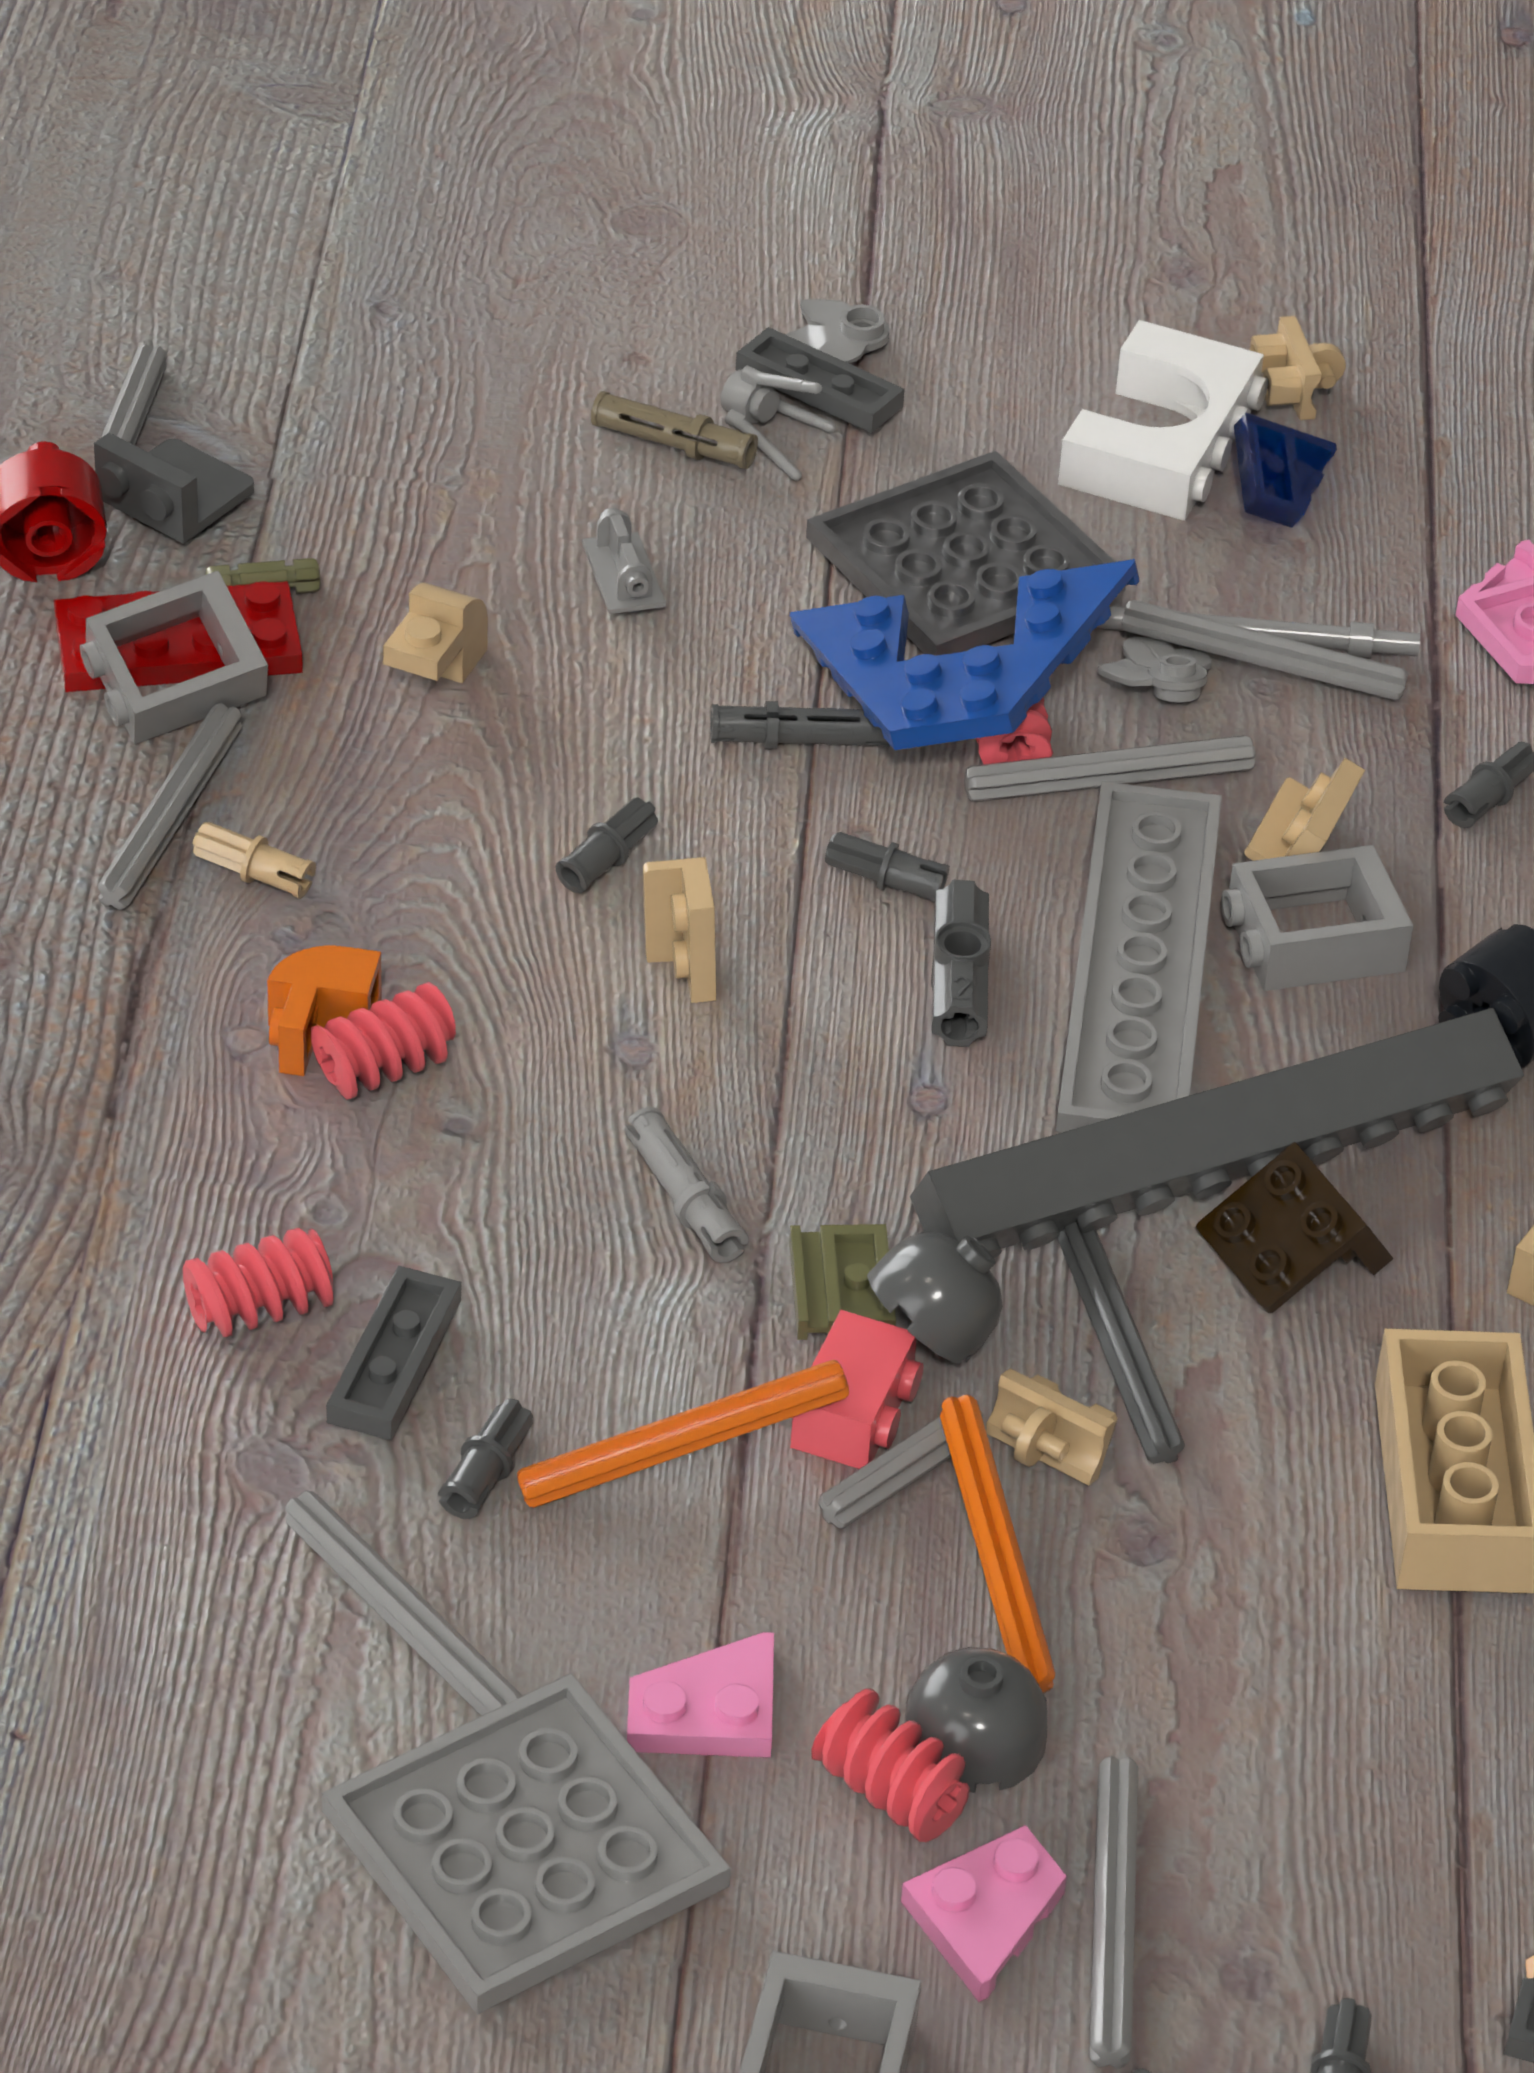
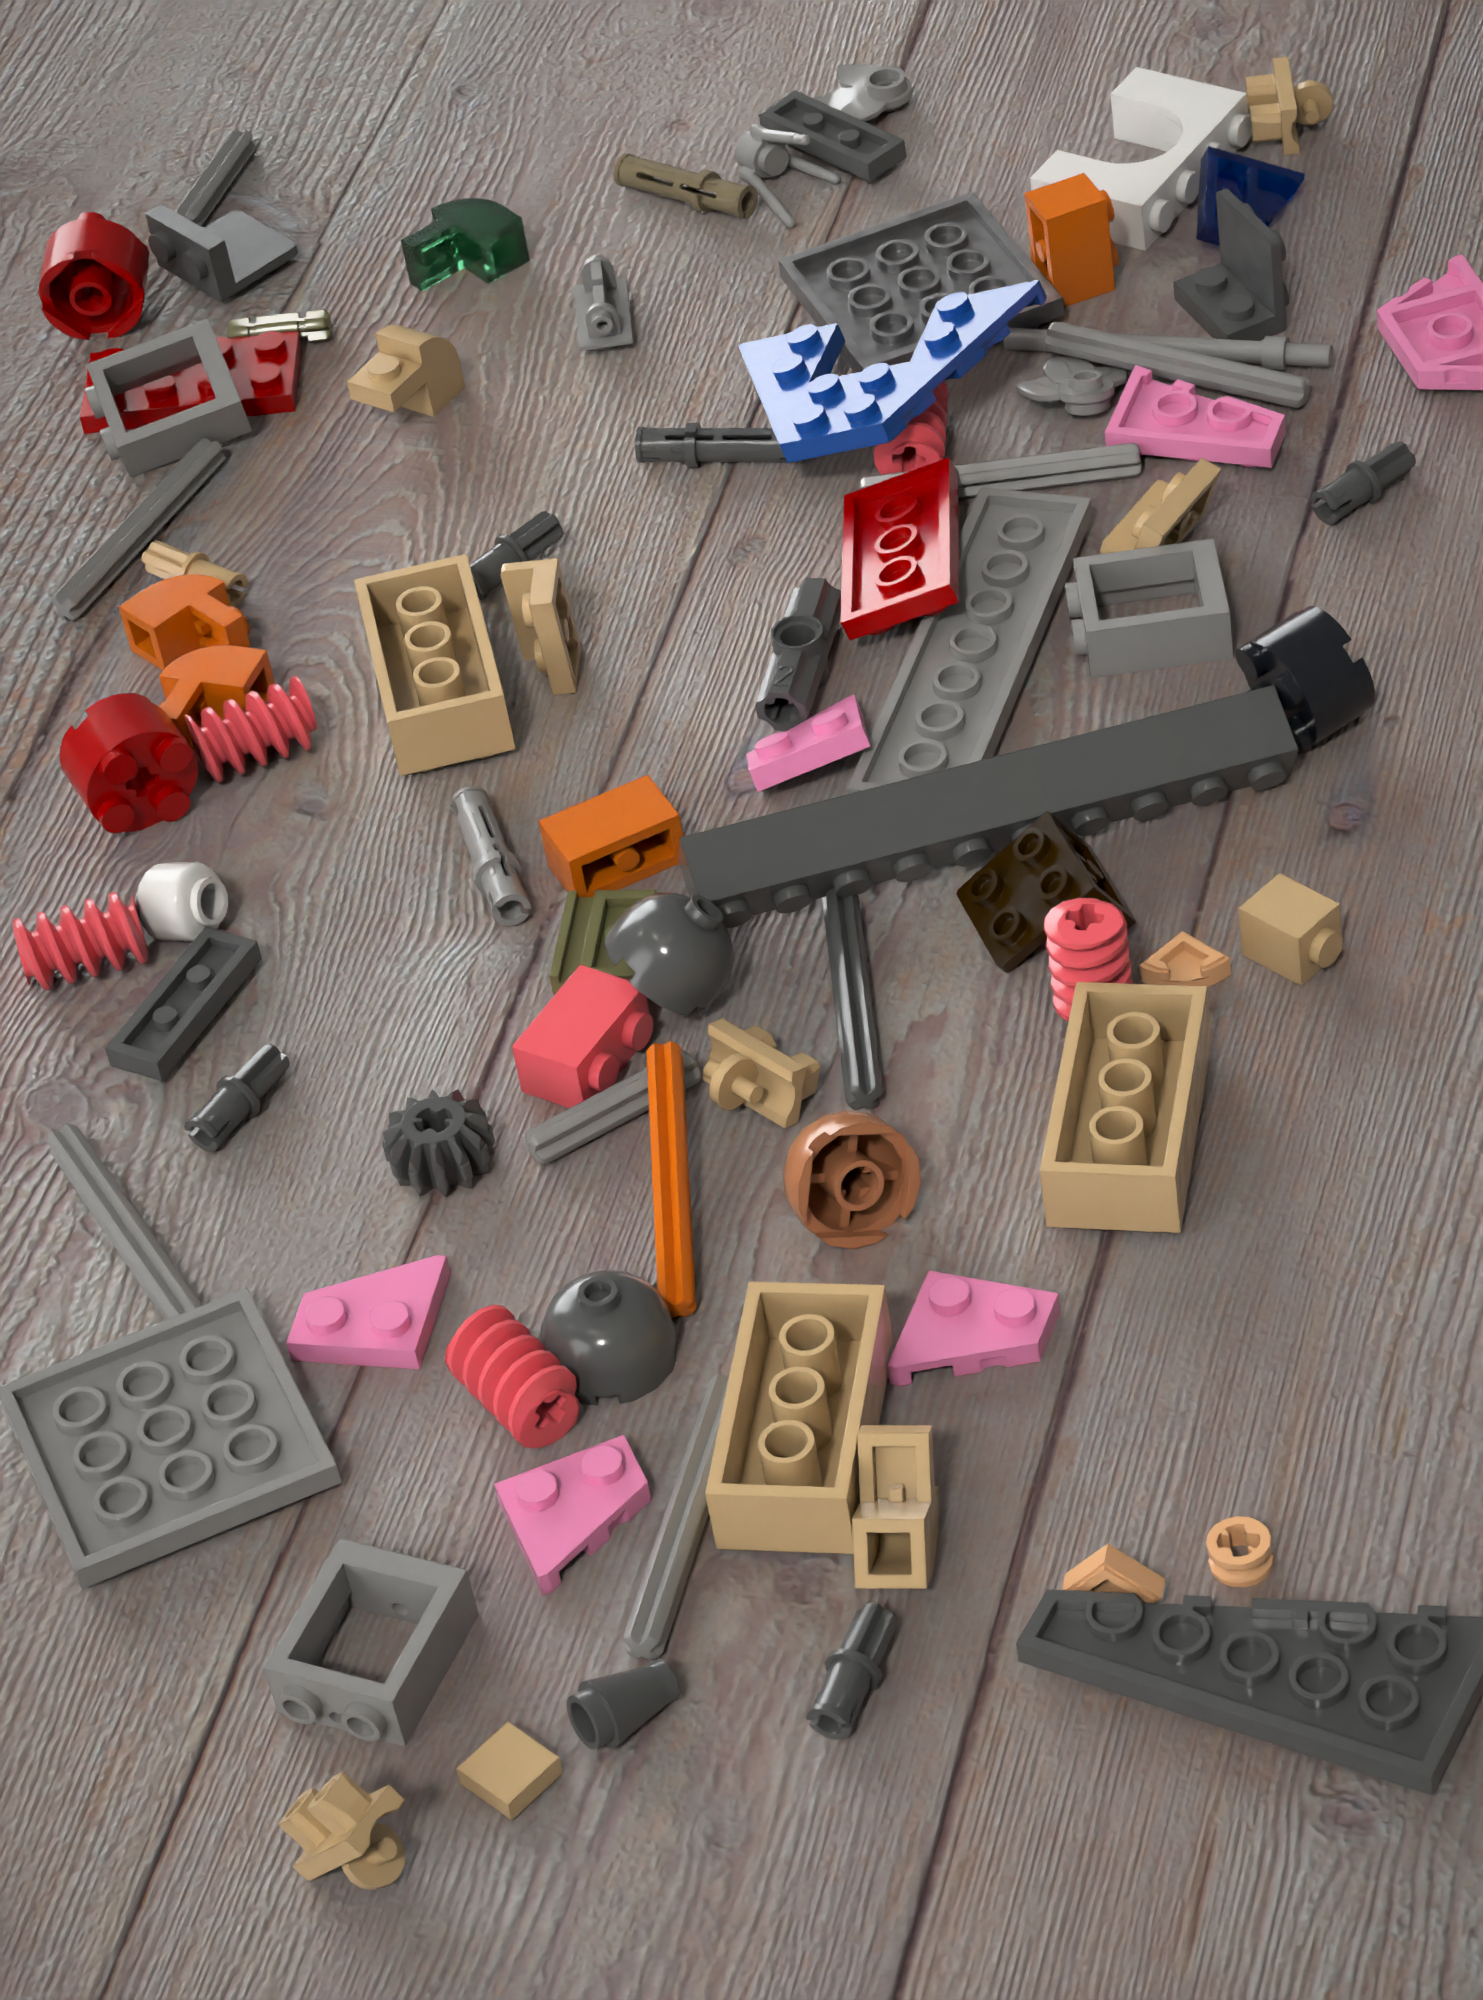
camera: 20 degrees right, 0 degrees up
(263, 908) = (182, 617): none -> orange brick
(264, 1080) = (129, 764): none -> red brick
(363, 1235) = (180, 900): none -> white head
(455, 479) = (469, 236): none -> clear green brick
(570, 970) = (434, 665): none -> tan brick
(683, 1433) = (408, 1074): orange axle -> none
(730, 1507) = (438, 1143): none -> dark grey gear
(820, 1168) = (612, 838): none -> orange brick
(887, 865) = (757, 567): dark grey axle -> none
(1002, 1063) = (809, 745): none -> bright pink wing
(1040, 849) = (900, 550): none -> red plate
(1129, 504) = (1072, 237): none -> orange brick
(1193, 1540) = (850, 1178): none -> nougat cylinder
(1221, 1803) = (795, 1397): none -> tan brick
(1299, 718) = (1192, 427): none -> bright pink wing
(1316, 561) = (1245, 291): none -> dark grey bracket
(1343, 1898) = (897, 1508): none -> tan brick
(1352, 1698) = (972, 1327): none -> bright pink wing
(1381, 1291) = (1085, 945): none -> coral piece
(1457, 1305) = (1185, 963): none -> light nougat tile

